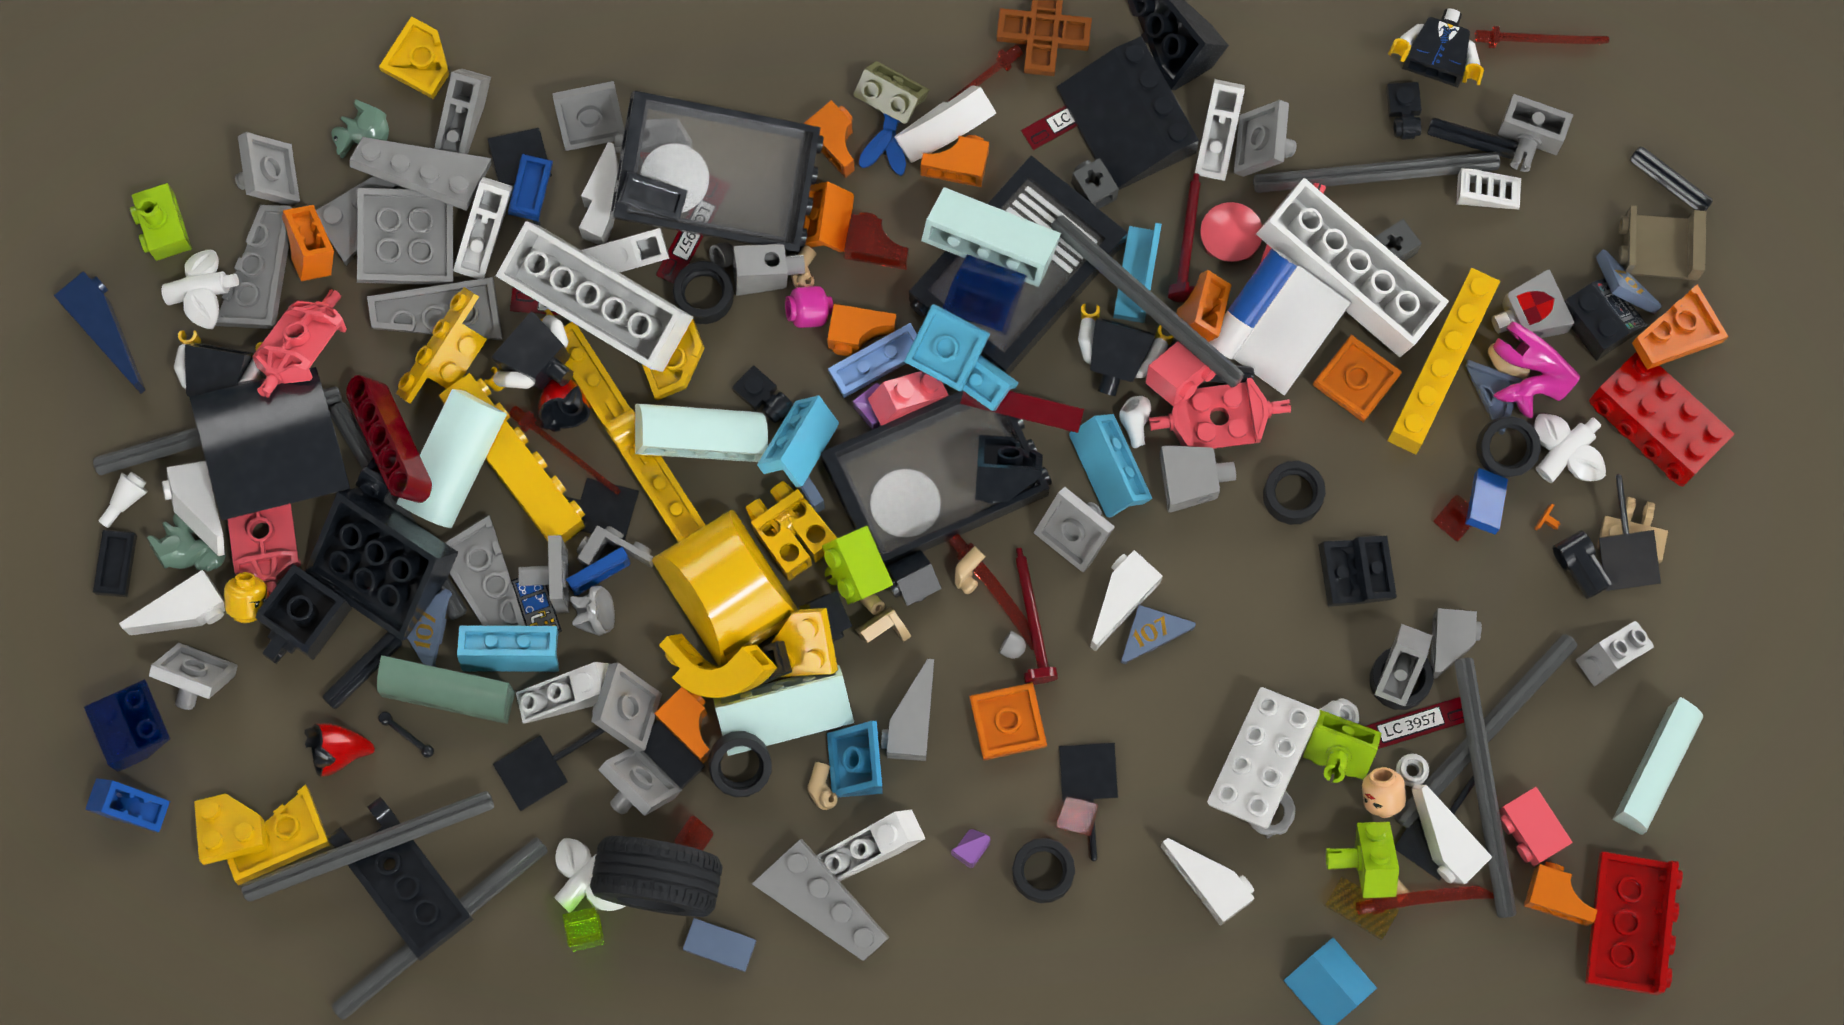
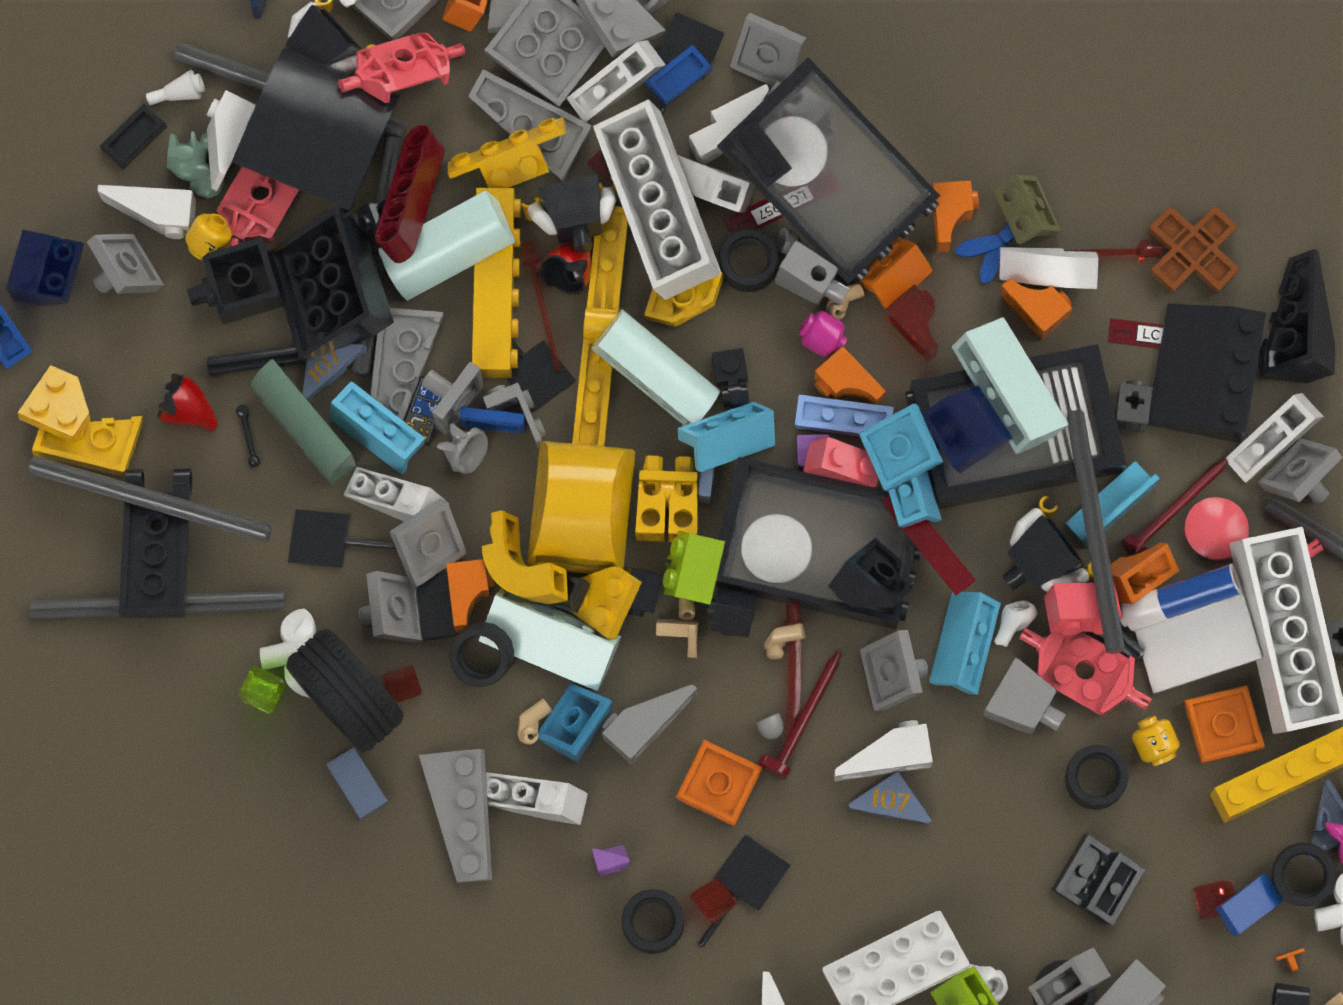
camera: 40 degrees right, 0 degrees up
(1317, 429) = (1155, 740): none -> yellow head

